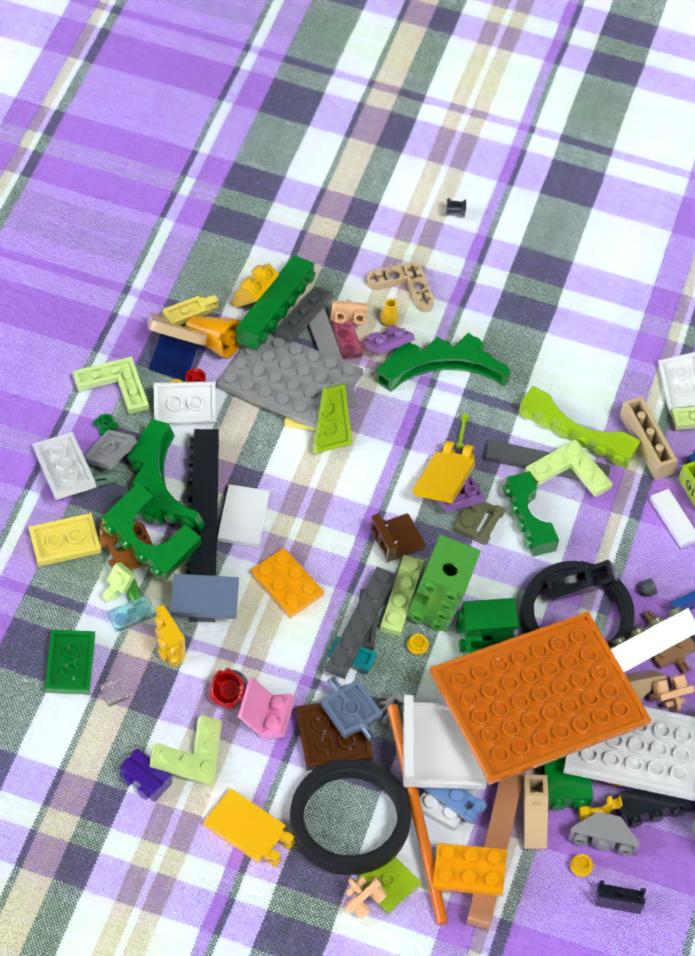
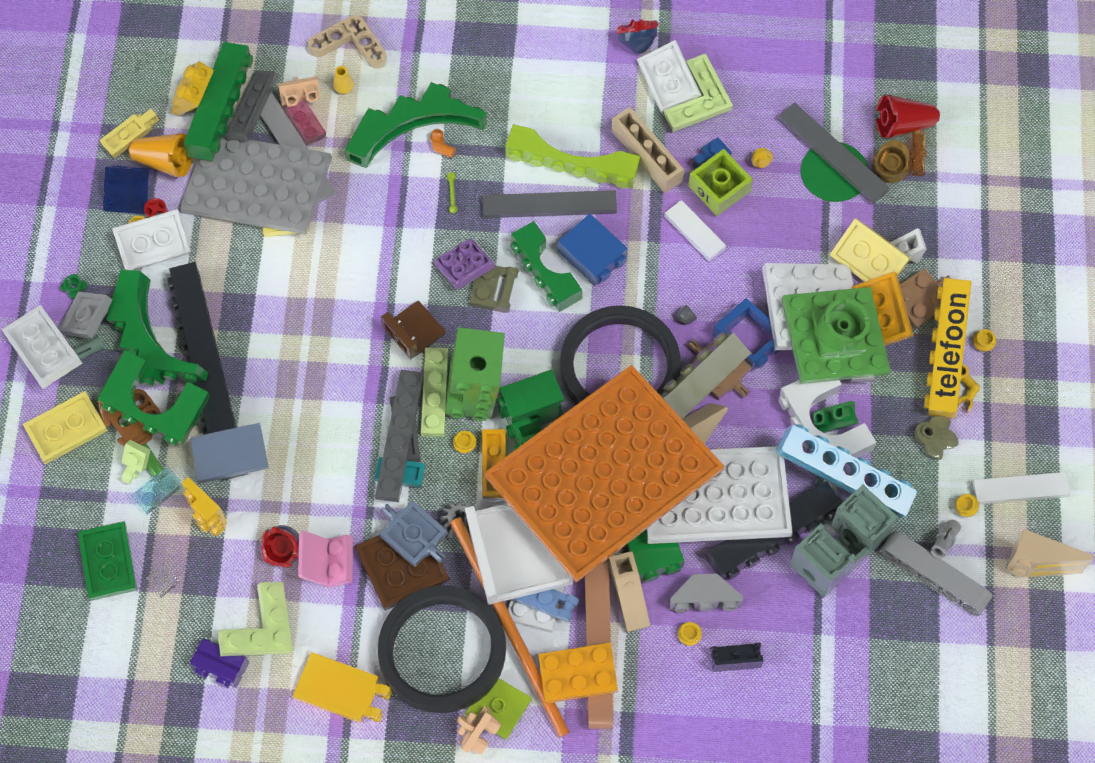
camera: 10 degrees left, 10 degrees up
(118, 371) = (72, 222): yellowish green plate -> none
(161, 325) = (100, 161): tan beam -> none
(243, 516) = (247, 349): white tile -> none
(287, 582) = (311, 411): light orange plate -> none
(333, 420) = (314, 220): lime wing -> none
(387, 340) = (348, 112): medium lavender tile -> none
(443, 651) = (492, 452): none -> light orange plate
(445, 474) = (447, 247): yellow tile -> none
(461, 388) = (438, 144): none -> orange arm
(573, 457) = (570, 192): yellowish green plate -> none
(577, 510) = (593, 250): none -> blue brick
(582, 580) = (617, 328): black slope -> none
(611, 804) = (683, 575): yellow arm -> none
(665, 340) = (638, 35): none -> dark blue hair
(679, 688) = (738, 427): light nougat hips -> none

